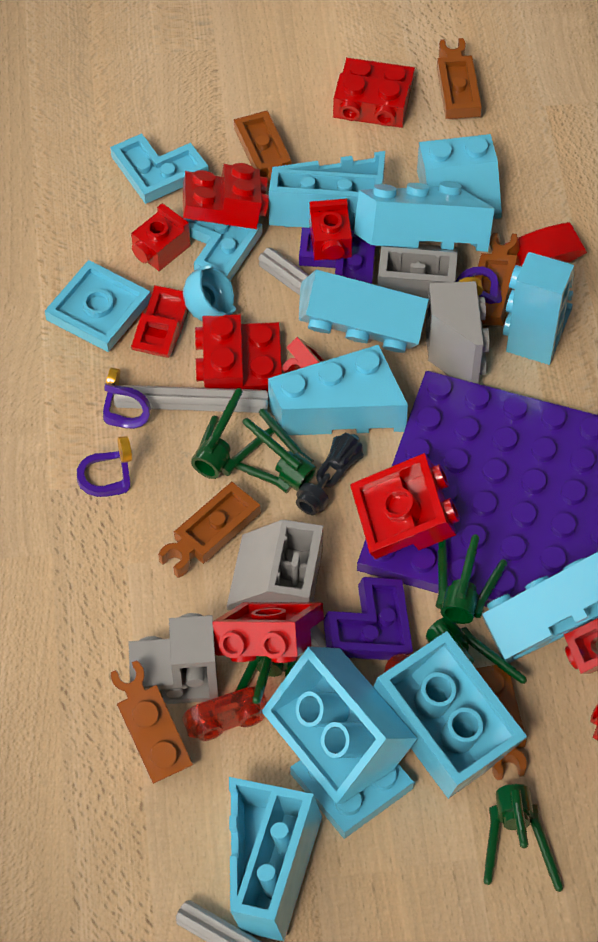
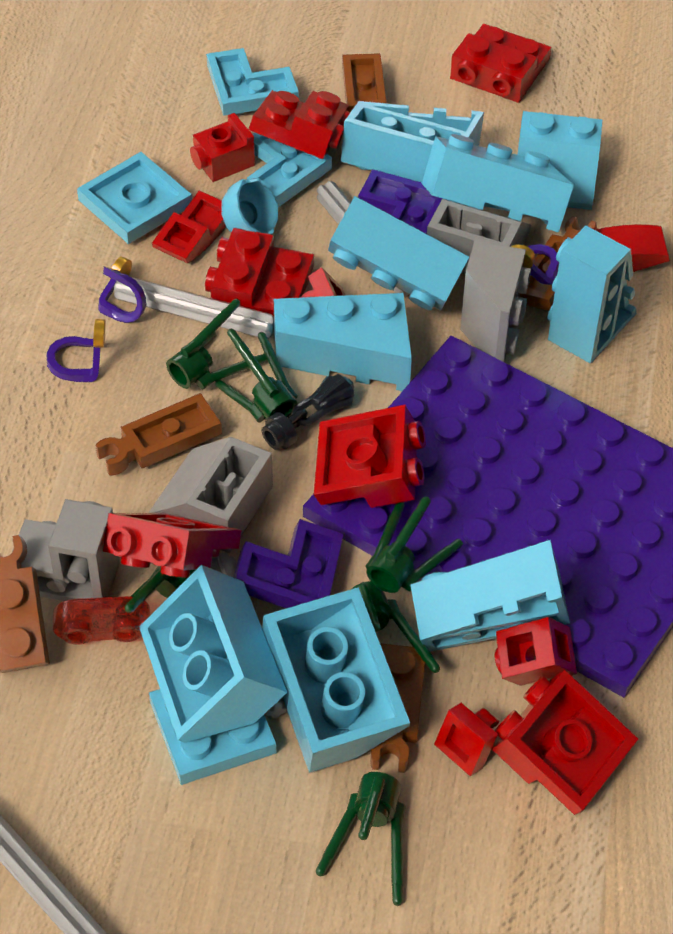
camera: 15 degrees right, 5 degrees down
(269, 854) = (86, 774): medium azure wedge -> none
(330, 229) = (397, 173): red brick -> none
(458, 82) = (591, 70): dark orange plate -> none
(570, 732) = (467, 737): none -> red tile

